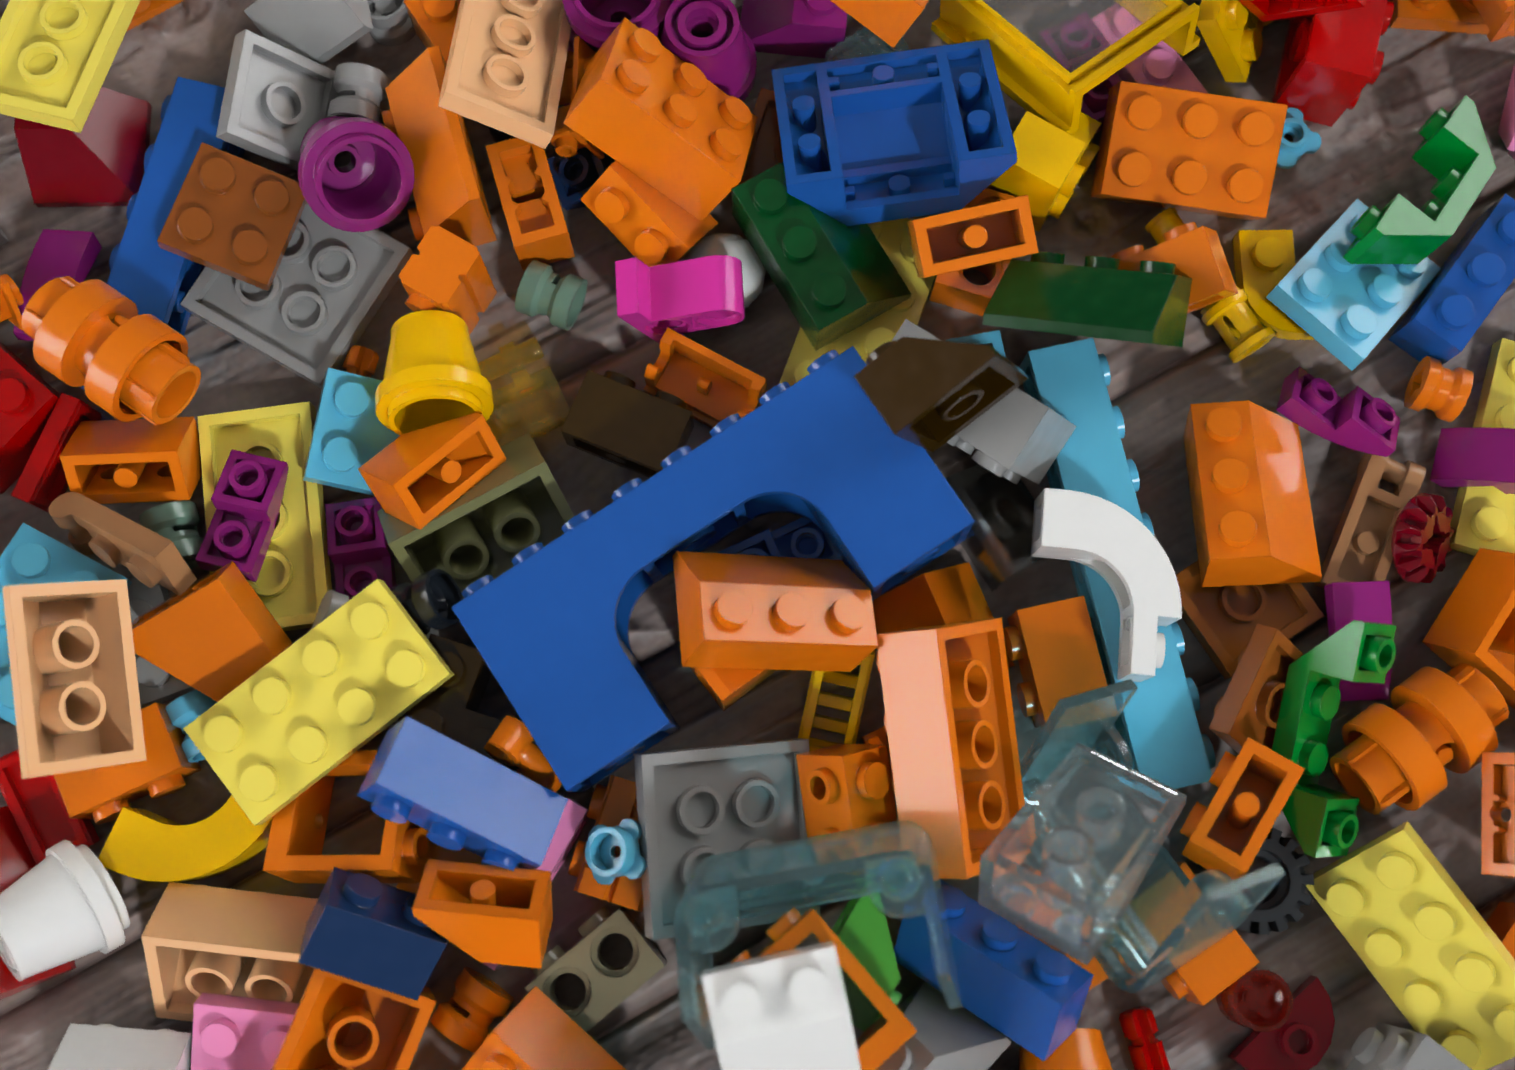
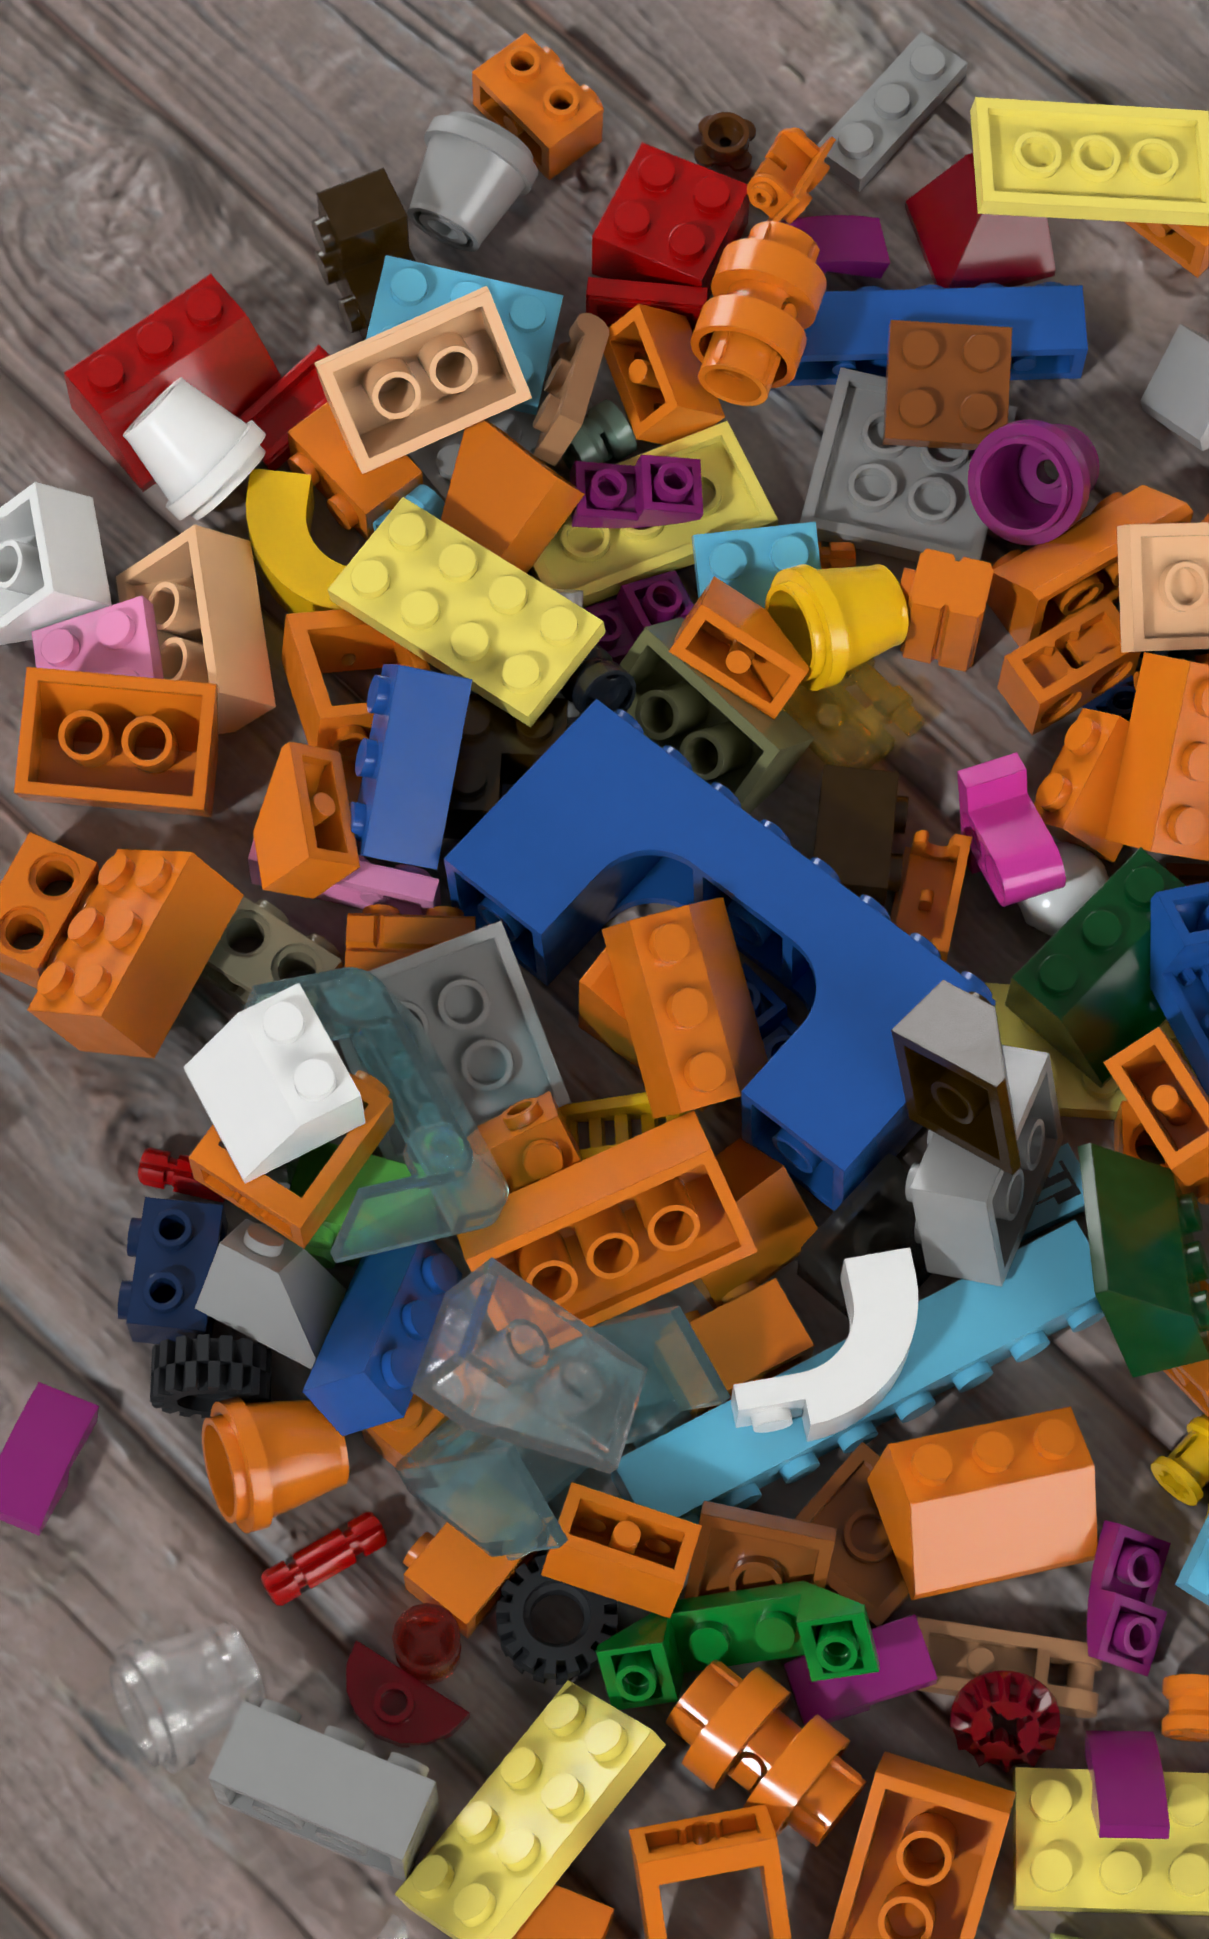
camera: 75 degrees right, 10 degrees down
(272, 98) = (1094, 384): light grey plate -> none
(358, 91) = (1129, 465): light grey wheel -> none
(370, 935) = (248, 720): dark blue brick -> none
(471, 1009) = (218, 851): orange wheel -> none
(514, 747) = (473, 802): orange piece -> none
(549, 294) = (975, 720): sand green wheel -> none
(601, 852) = (396, 931): medium azure plate -> none

